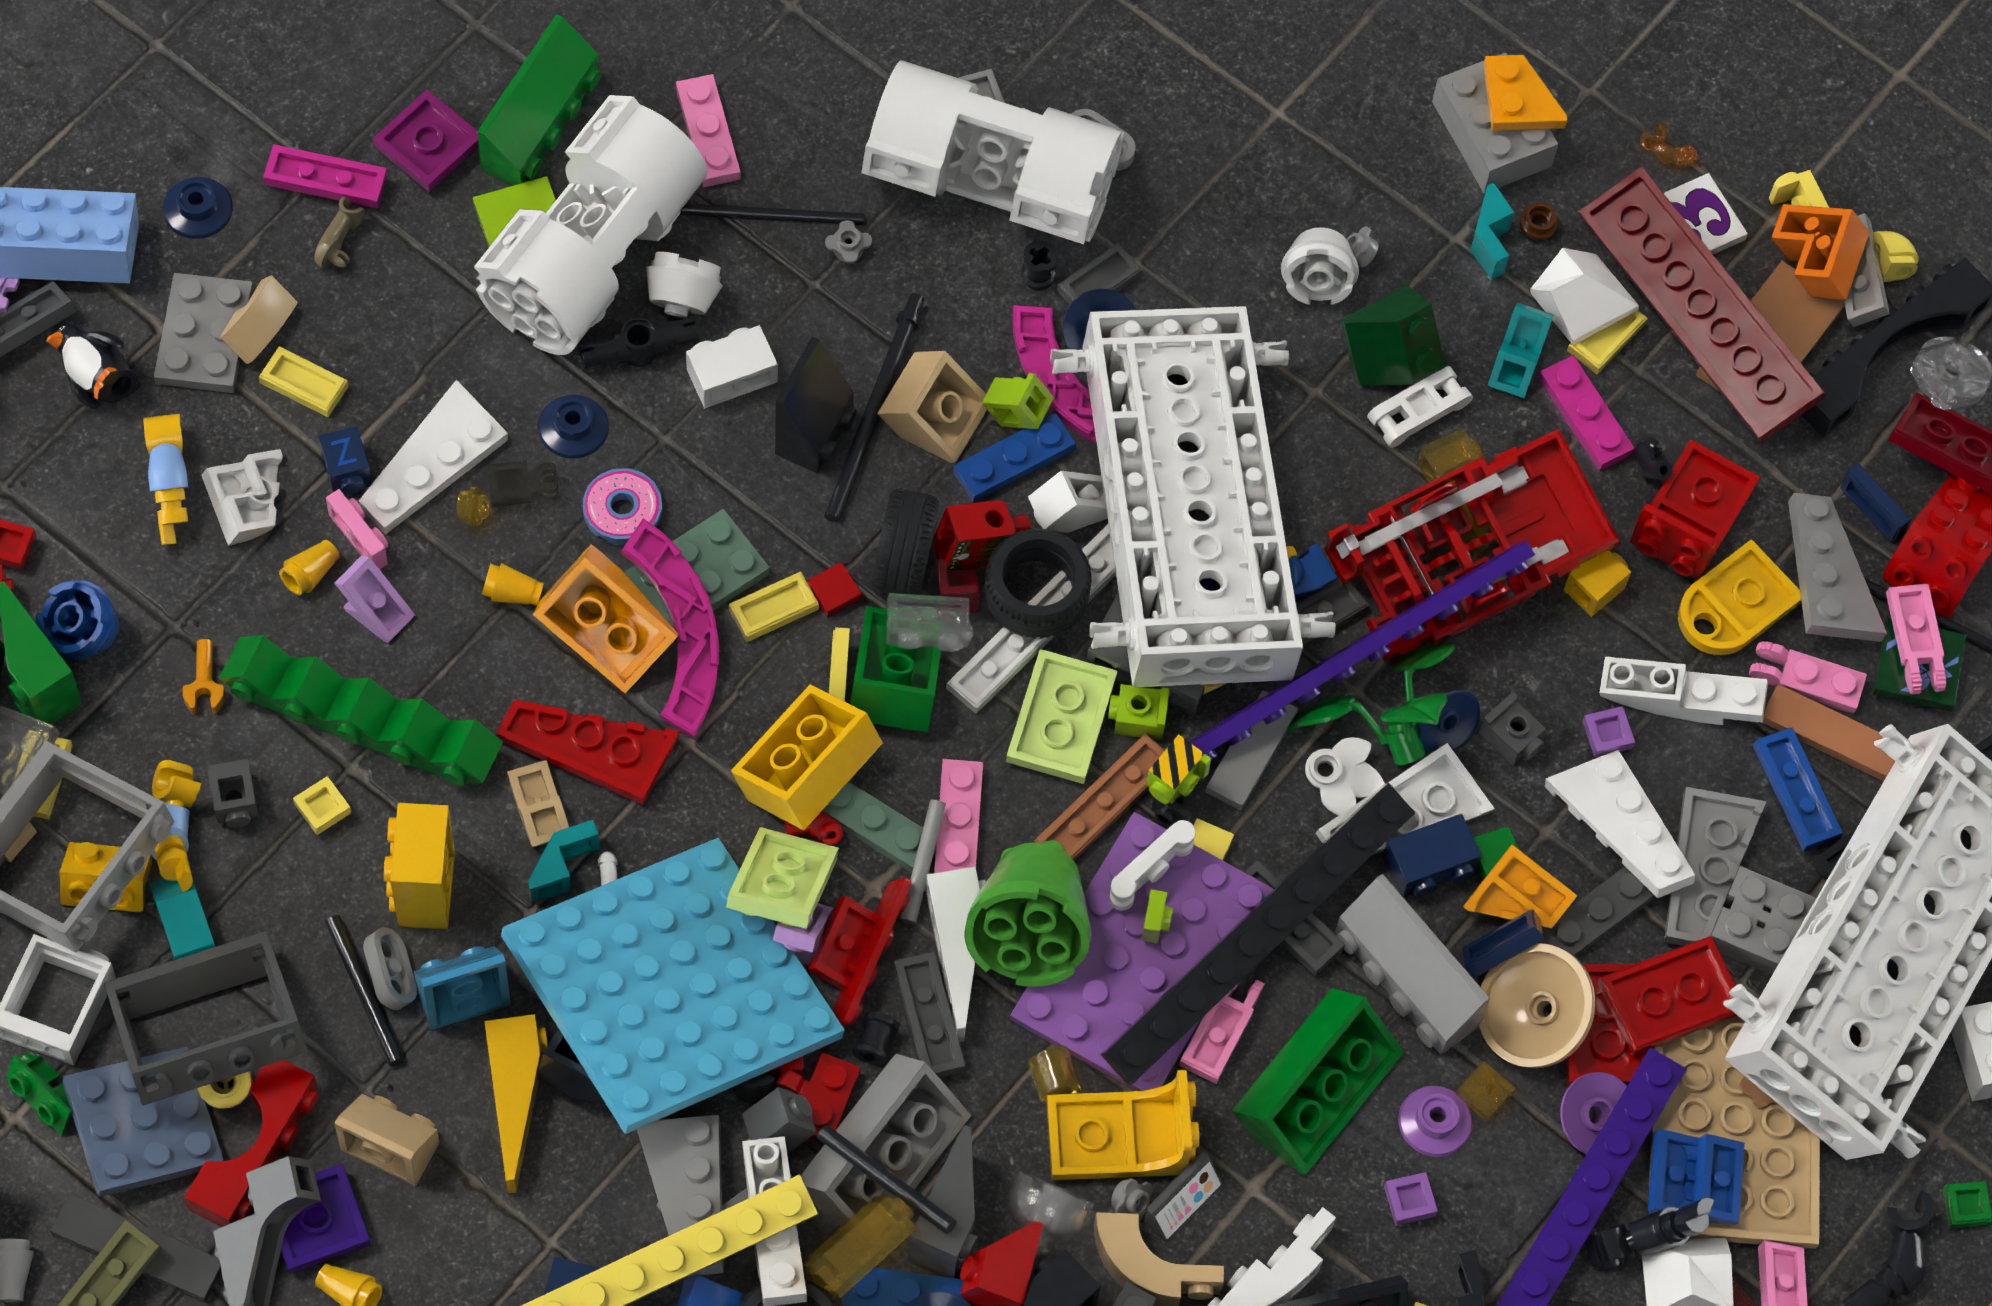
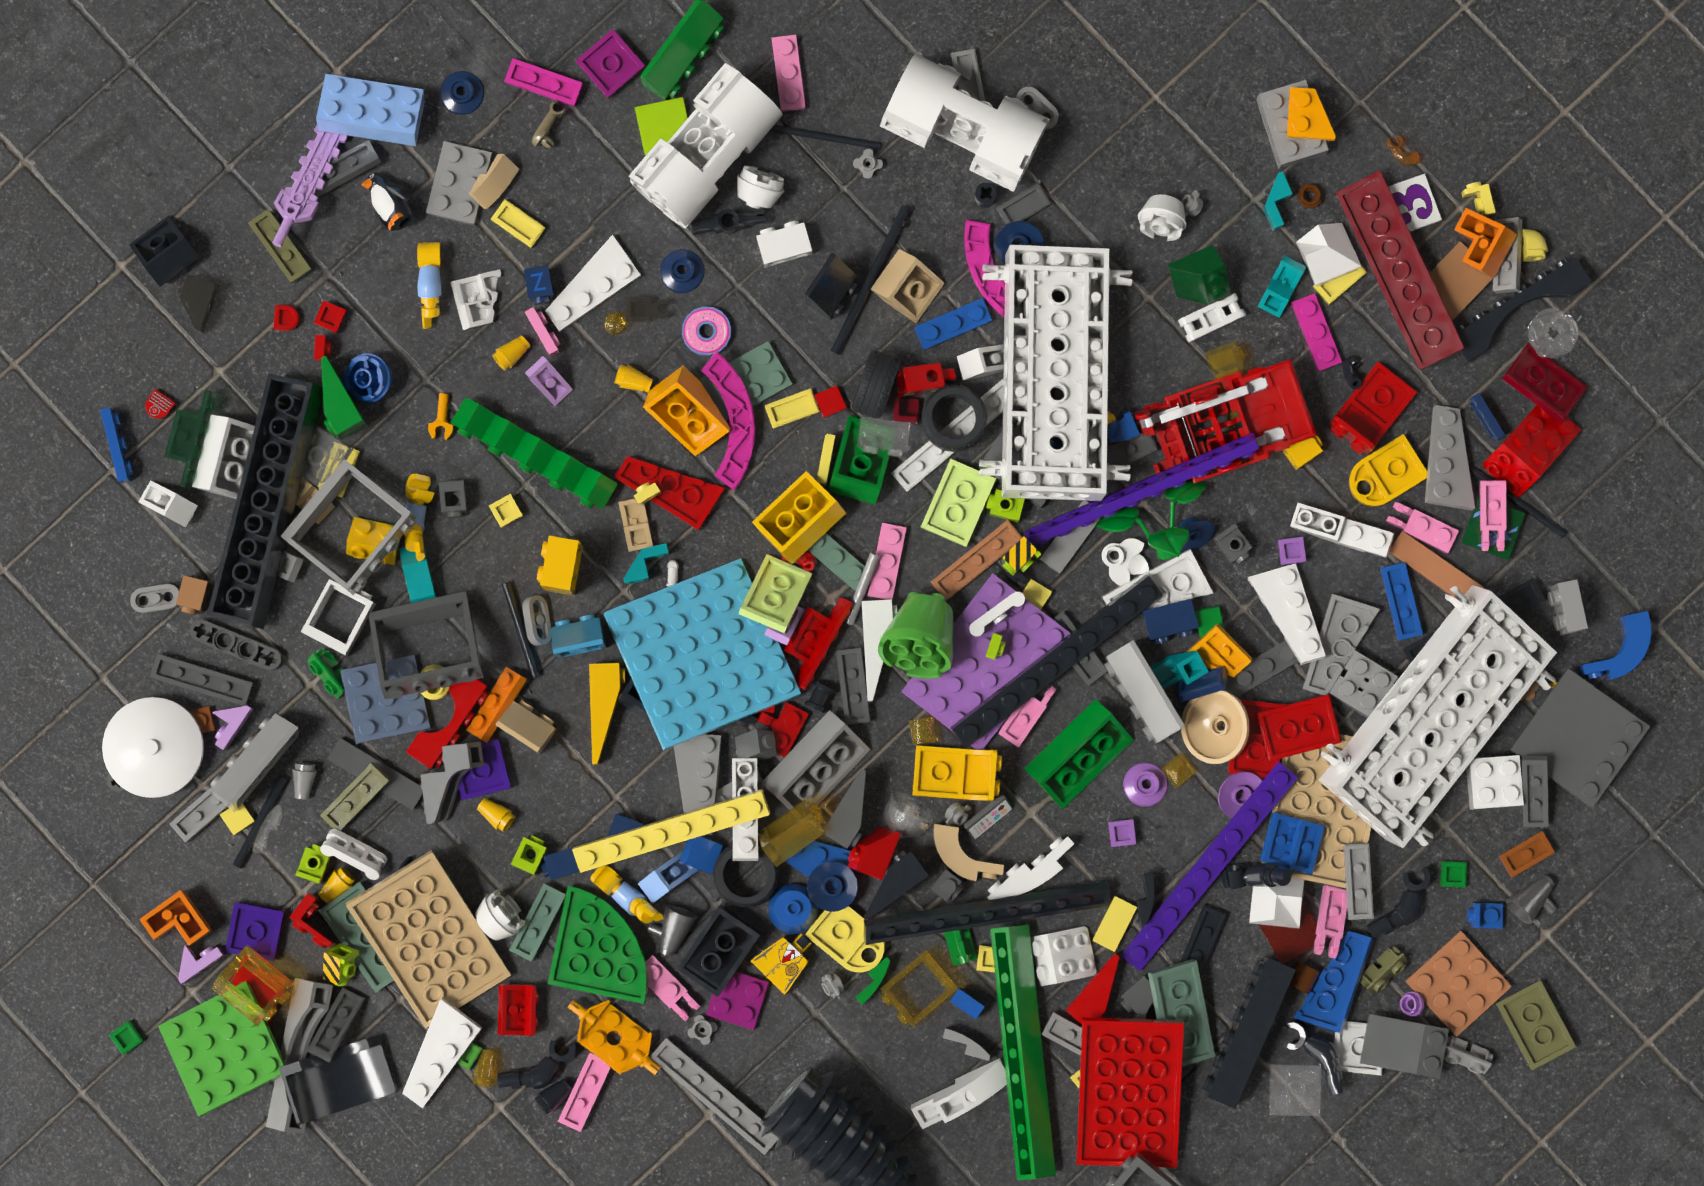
camera: 10 degrees right, 20 degrees up
(346, 1083) = (496, 704): none -> orange plate
(553, 746) = (646, 492): none -> light yellow plate
(887, 1179) = (812, 796): black bar -> none
(1018, 401) = (959, 290): lime brick -> none
(1469, 921) = (1182, 666): none -> teal slope
(1817, 1227) = (1358, 881): none -> light grey tile

